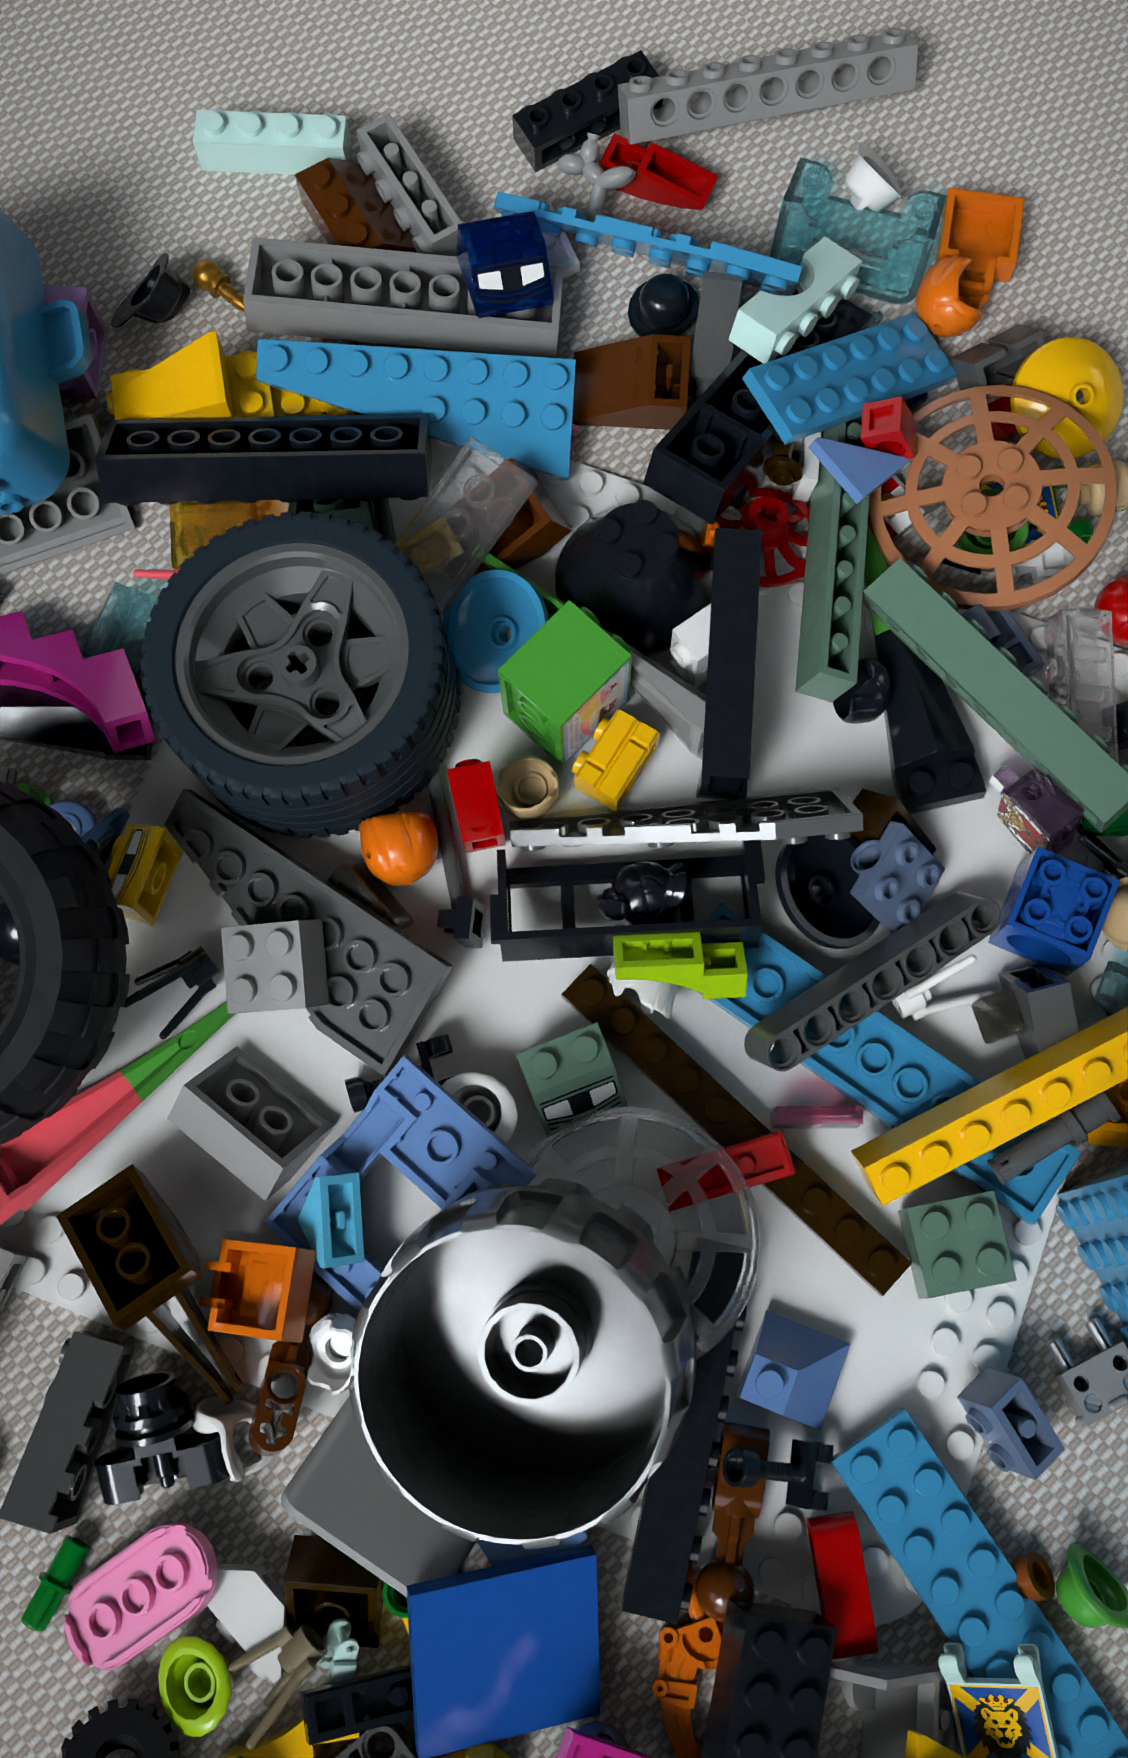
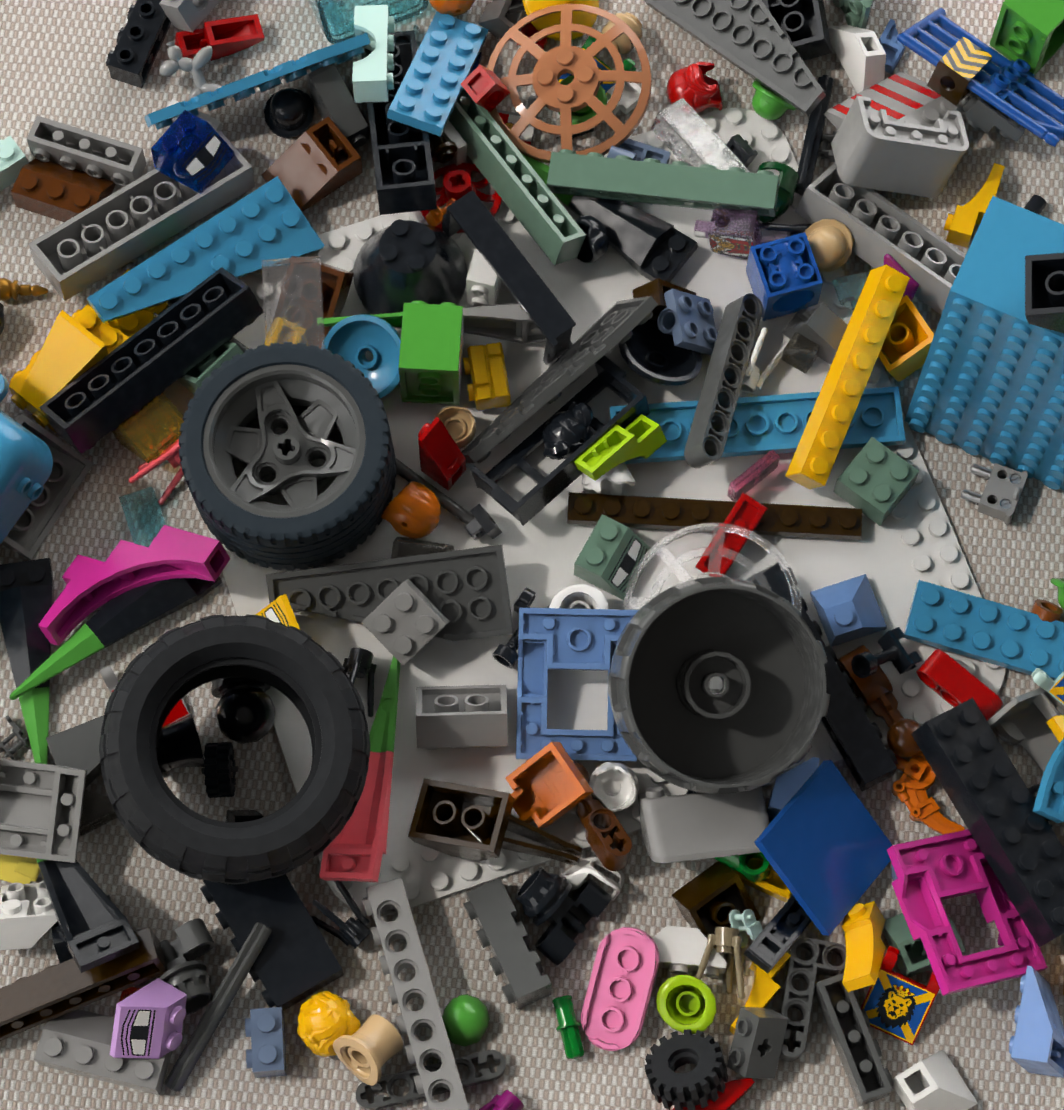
camera: 45 degrees left, 5 degrees down
(334, 1220) = (553, 720): medium azure slope -> none
(855, 467) = (485, 121): medium blue tile -> none
(1010, 1423) = (974, 544): sand blue brick -> none
(1069, 1126) = (881, 375): dark grey pin -> none

